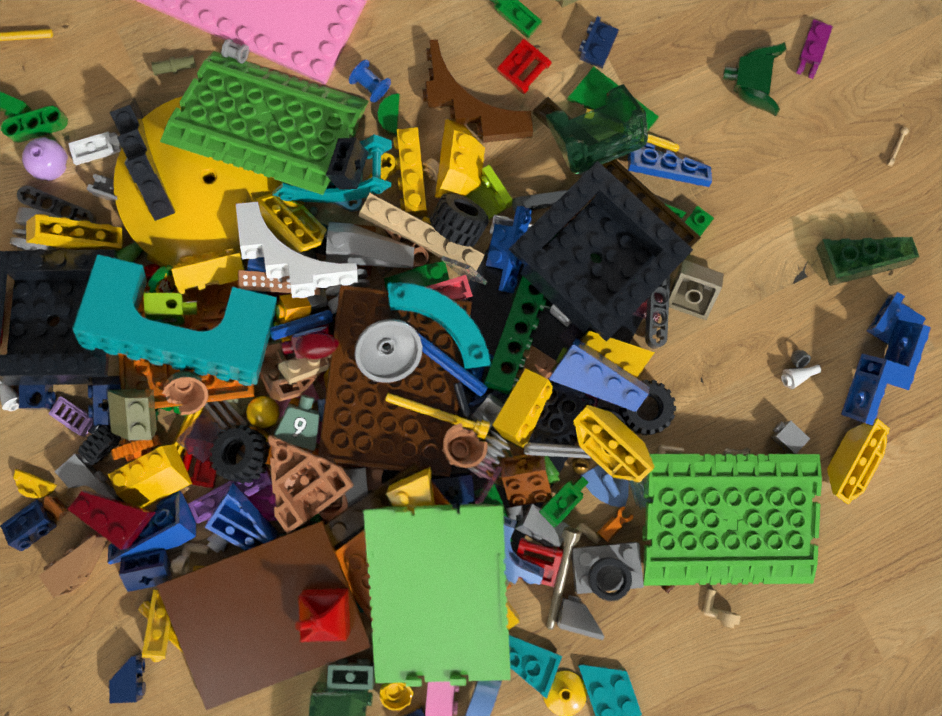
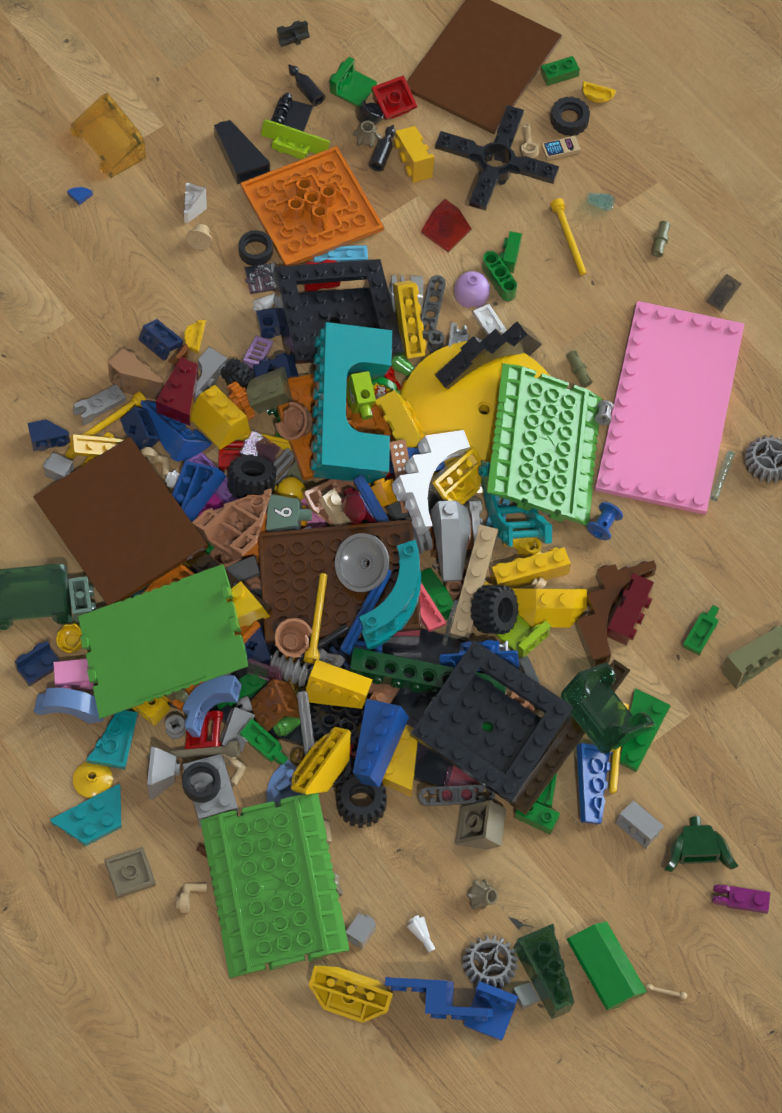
camera: 75 degrees right, 20 degrees down
(98, 213) = (435, 340): none -> dark grey bush
(98, 611) = (99, 404): none -> light grey plate
(106, 569) = (135, 402): none -> yellow piece
(174, 674) = (57, 467): none -> light grey brick
(323, 615) = (129, 559): red piece -> none
(325, 215) = (475, 509): none -> white hinge
(347, 163) = (519, 507): black brick -> none
(389, 113) = (582, 545): green tile -> none
(480, 78) = (630, 610): none -> dark red wedge
(517, 63) = (657, 641): red plate -> none
(519, 590) = (178, 730): none -> light grey wheel
(599, 43) = (694, 705): dark blue bracket -> none
(614, 525) = (248, 792): orange bar -> none
(681, 670) = (130, 872): none -> dark tan tile
(720, 128) = (639, 824): none -> light grey hinge
(773, 304) = (482, 894): none -> dark tan rock
(800, 358) = (436, 934): dark grey hinge -> none
(859, 321) = (497, 966): none -> light grey gear
(866, 197) = (606, 965): none -> green slope
(881, 284) = (526, 995): none -> light grey slope

